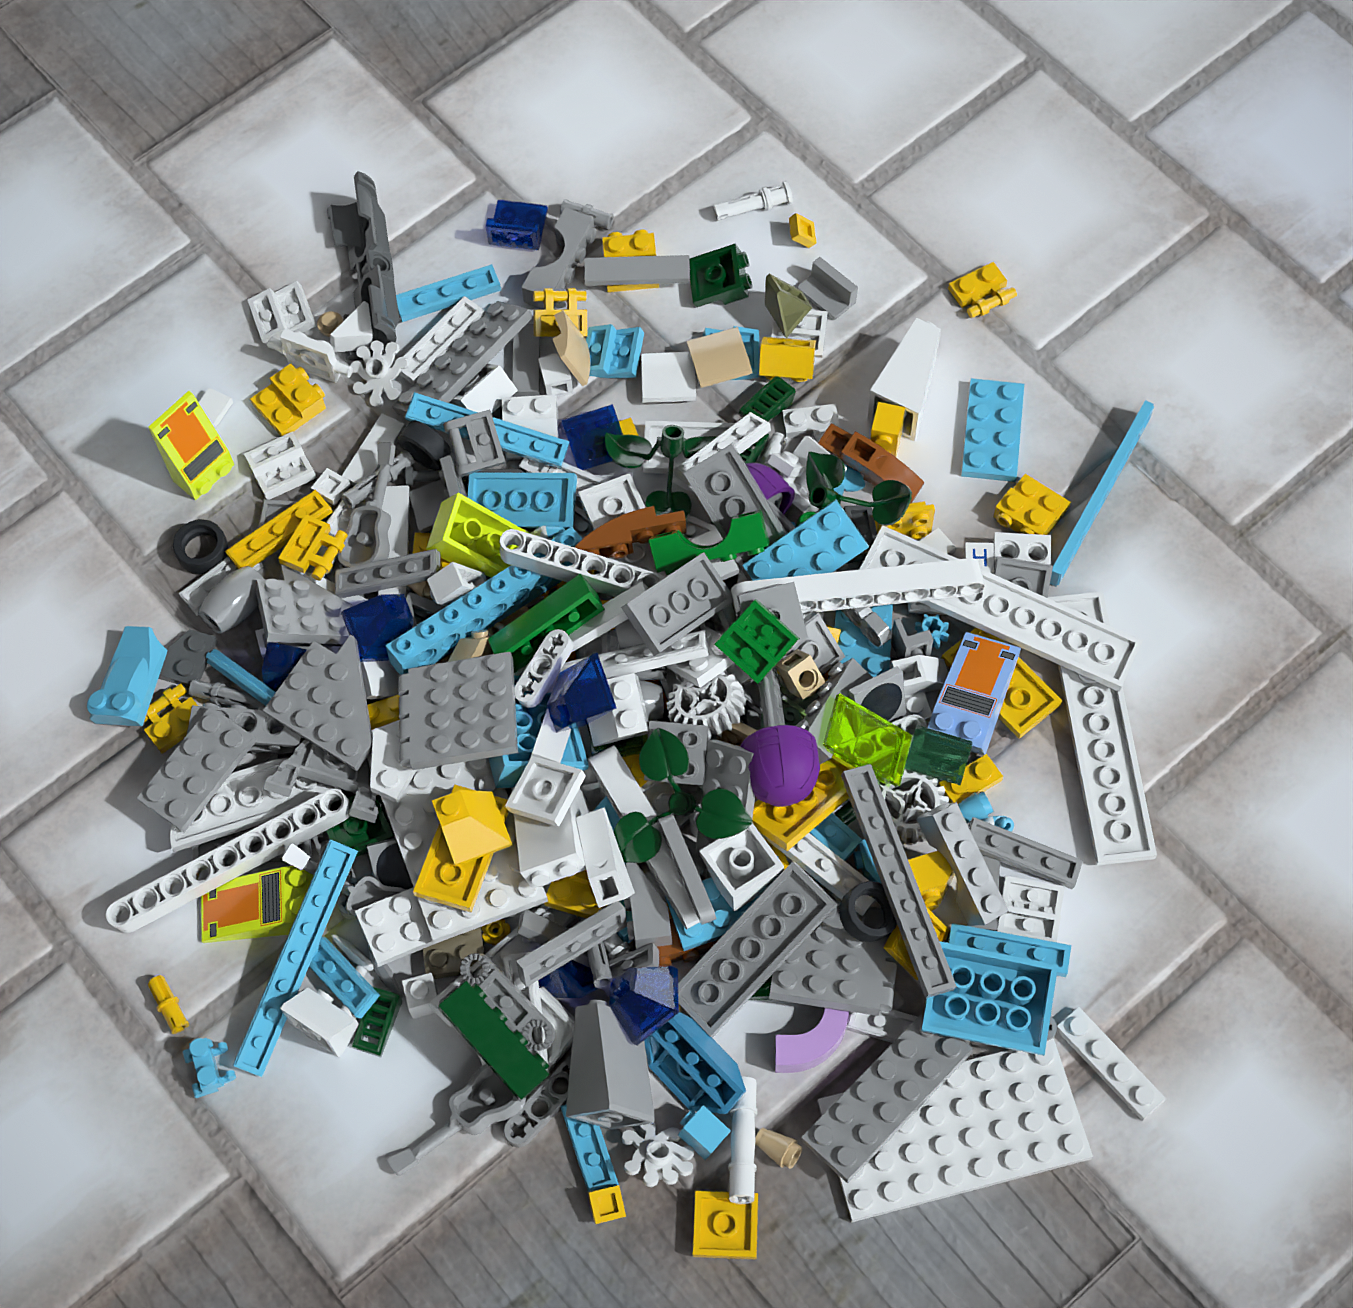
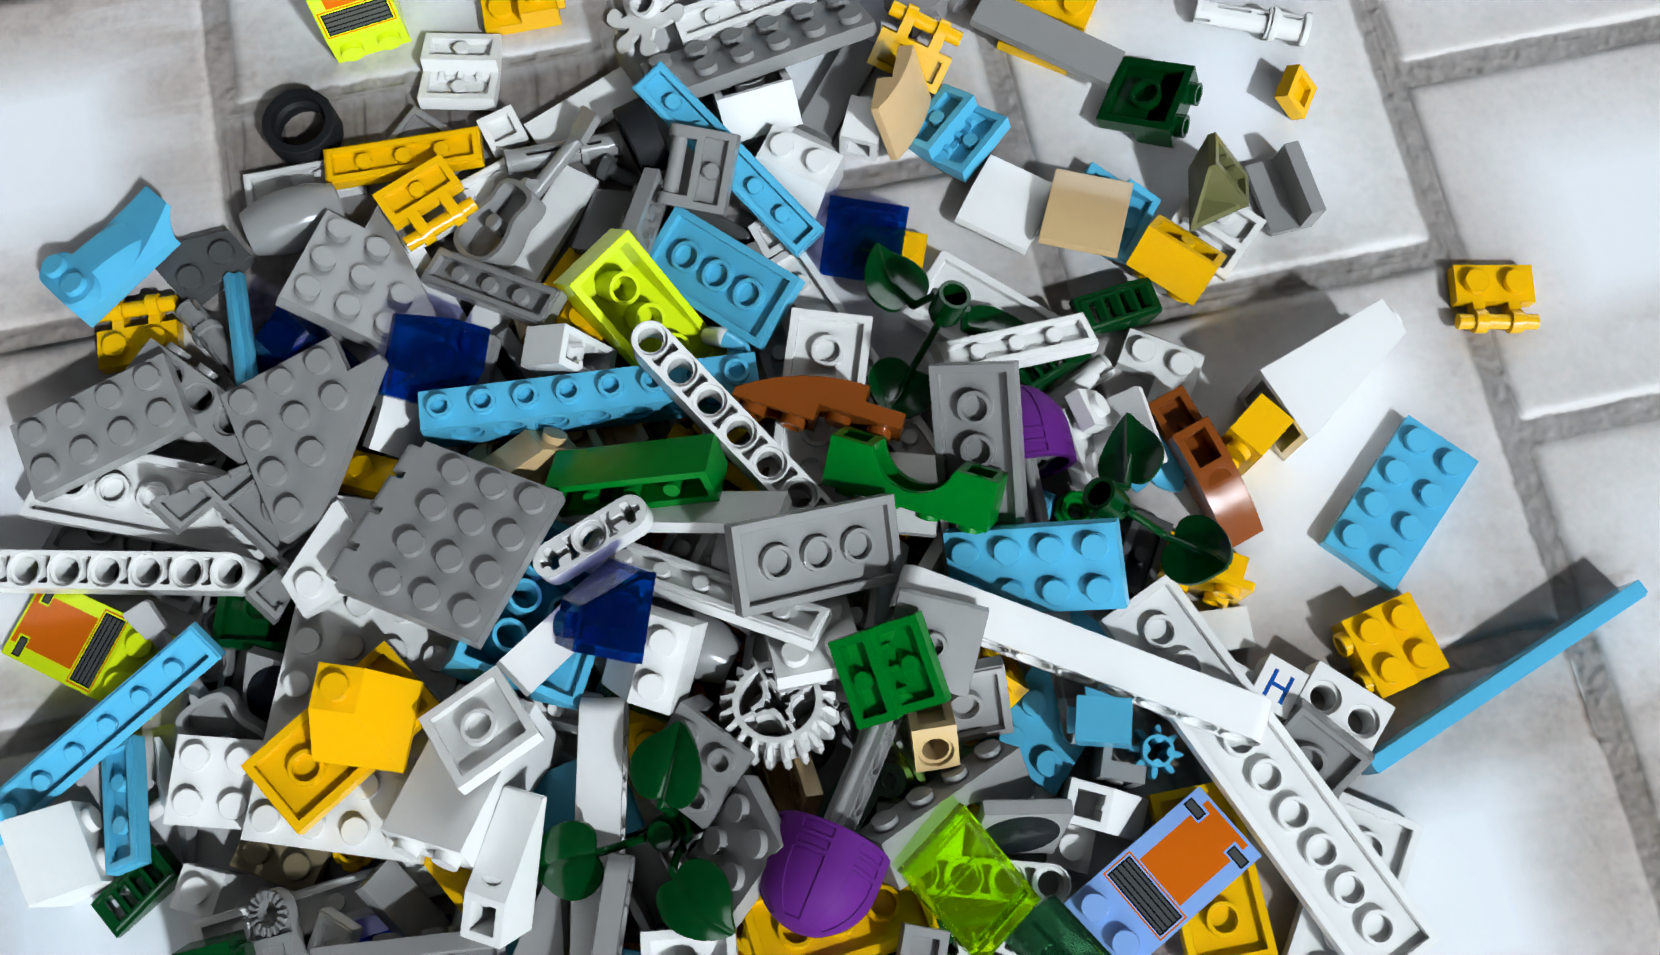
camera: 25 degrees right, 10 degrees up
(890, 615) = (1101, 721): none -> medium azure brick

